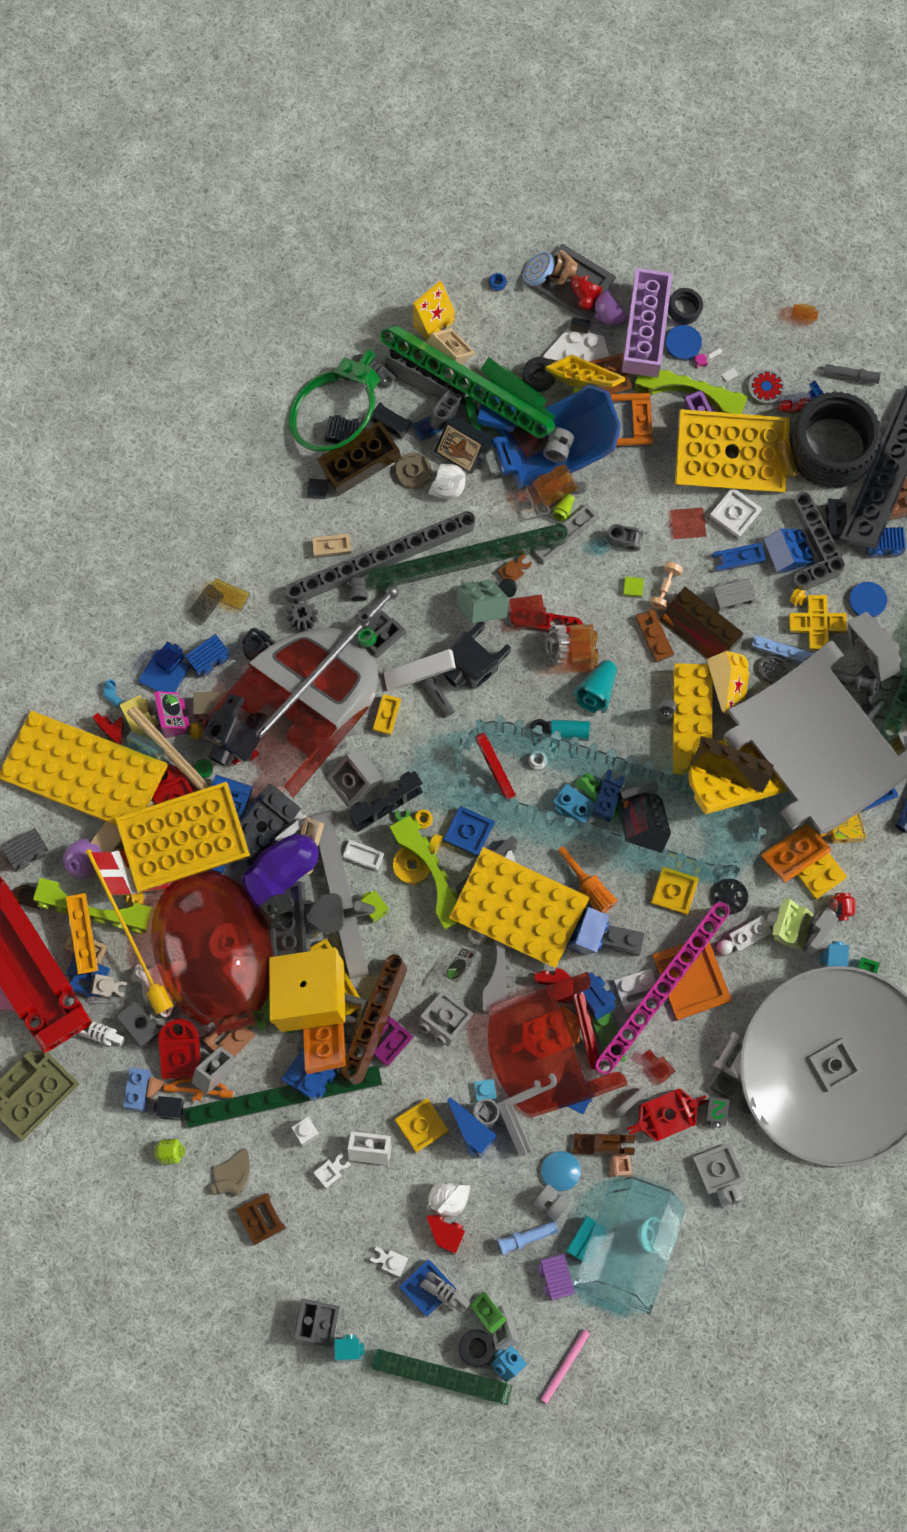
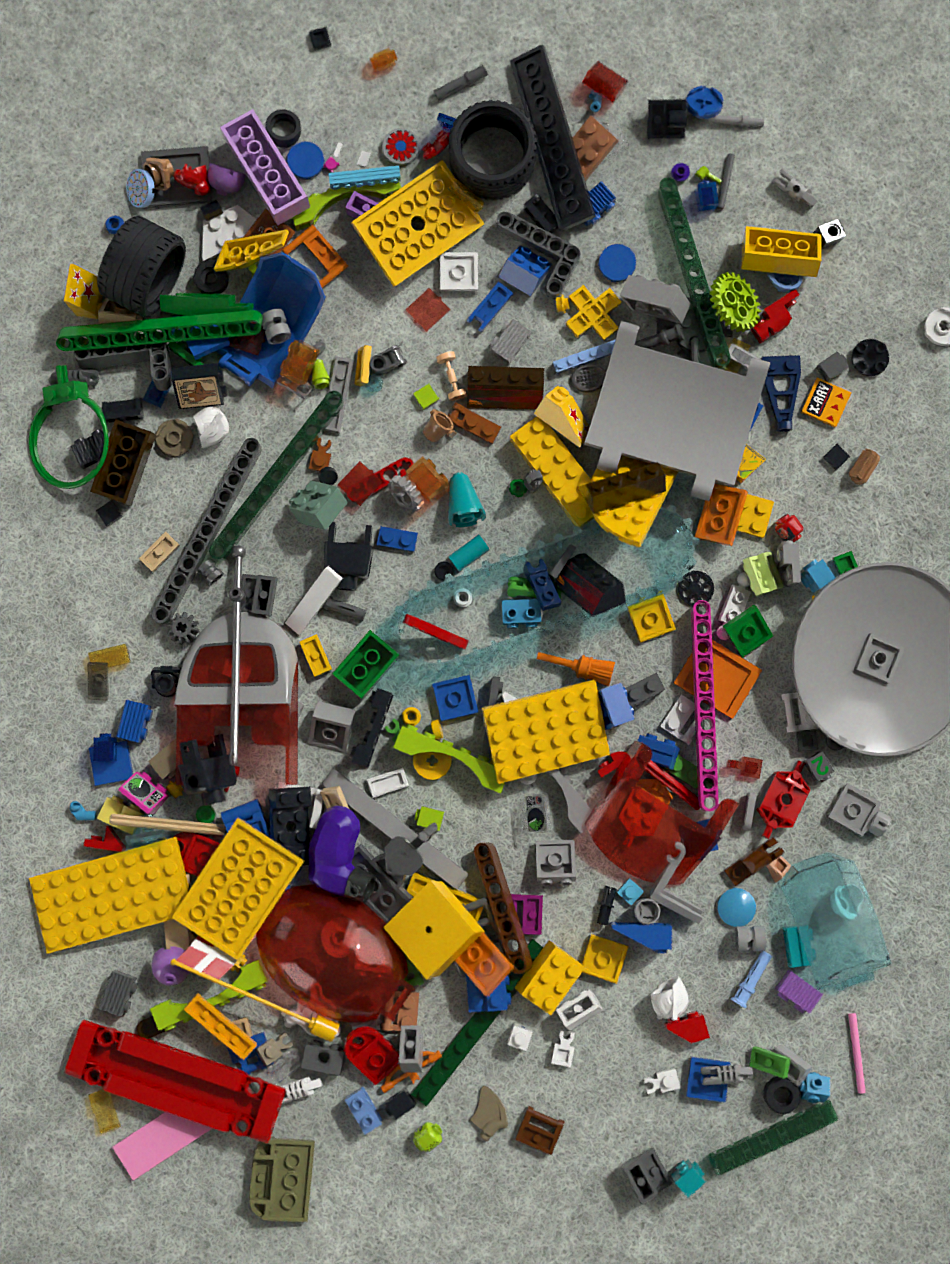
camera: 35 degrees left, 10 degrees up
(153, 1088) = (374, 1097): nougat slope -> none
(366, 637) = (250, 607): green tile -> none
(367, 1103) = (550, 977): none -> yellow brick
(420, 750) = (366, 664): none -> green brick
(457, 1085) = (606, 905): none -> black axle
(492, 322) = (141, 265): none -> black tyre
(523, 676) = (397, 539): none -> blue plate
(602, 526) = (363, 365): none -> yellow tile
(624, 614) = (438, 426): none -> medium nougat piece
(649, 705) = (512, 489): none -> green plate
(718, 386) = (364, 177): none -> medium azure piece
(744, 959) = (748, 630): none -> green plate
(768, 262) = (320, 38): none -> black tile

